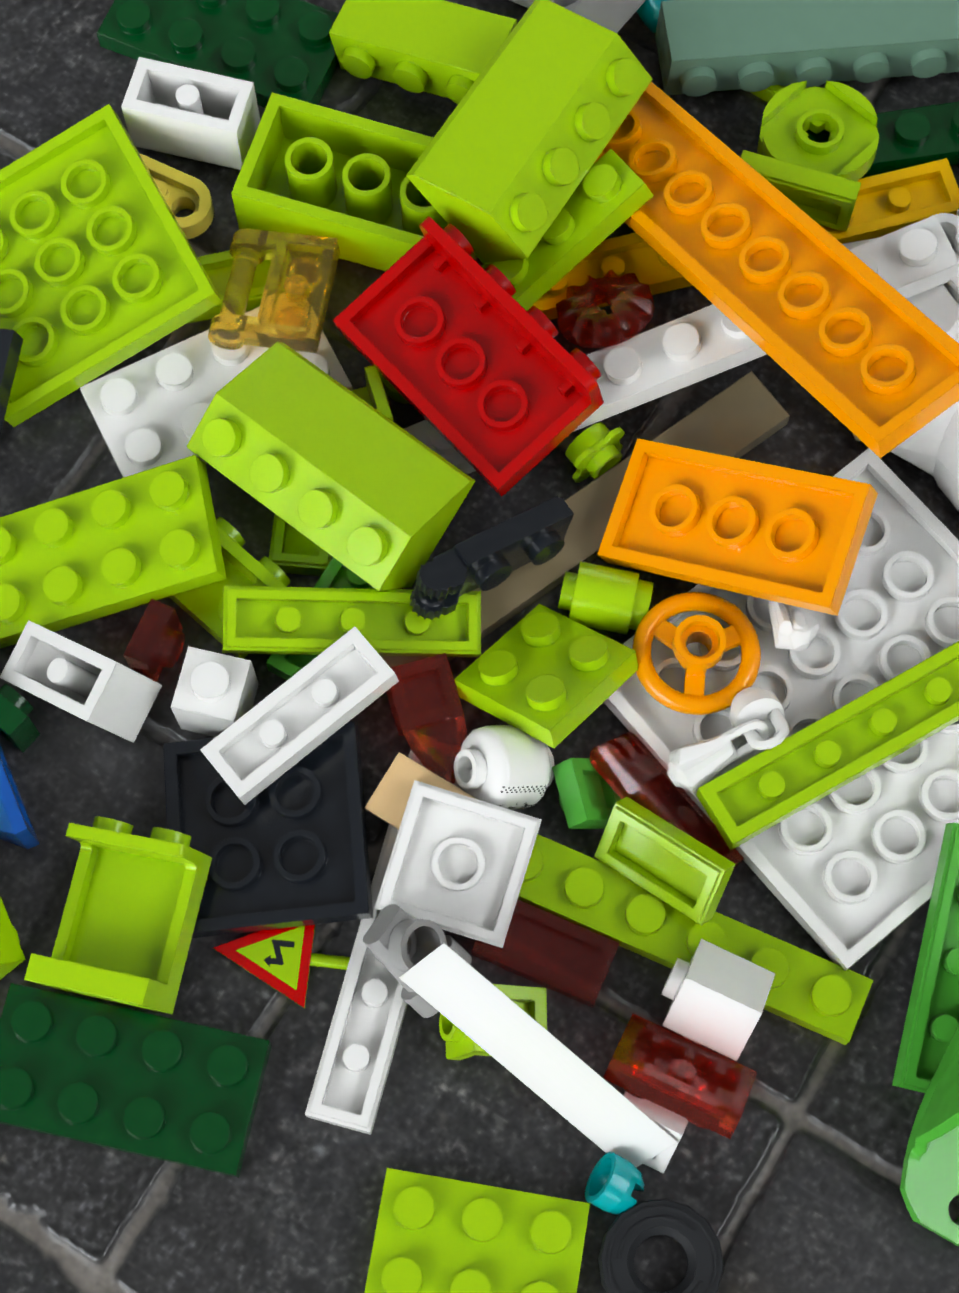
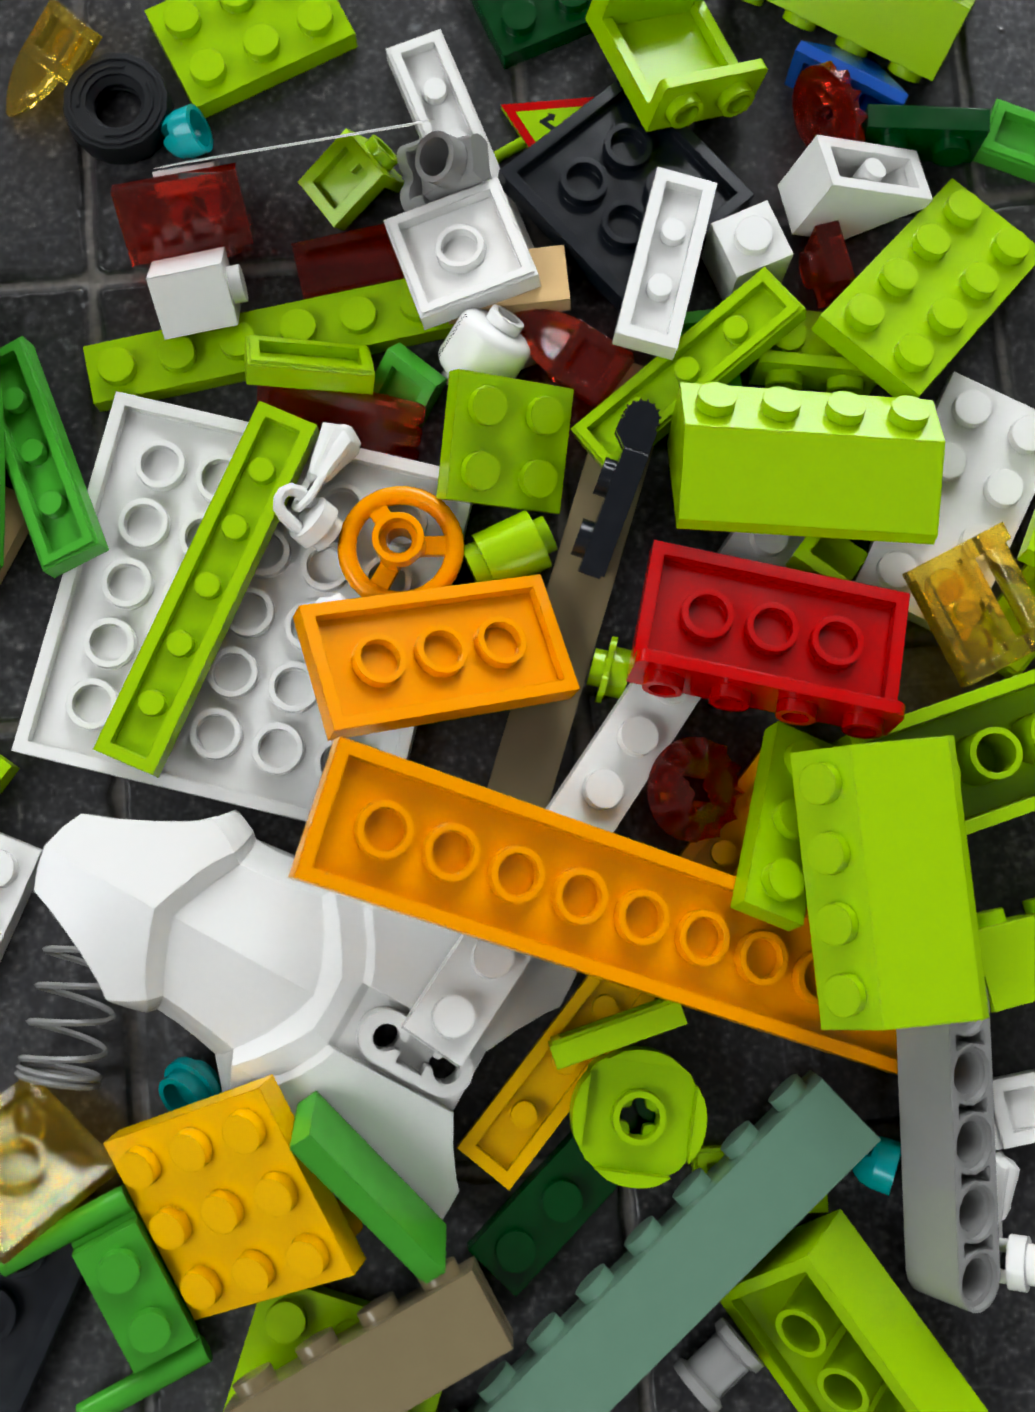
camera: 140 degrees right, 10 degrees up
(44, 760) = (816, 92): none -> clear red gear

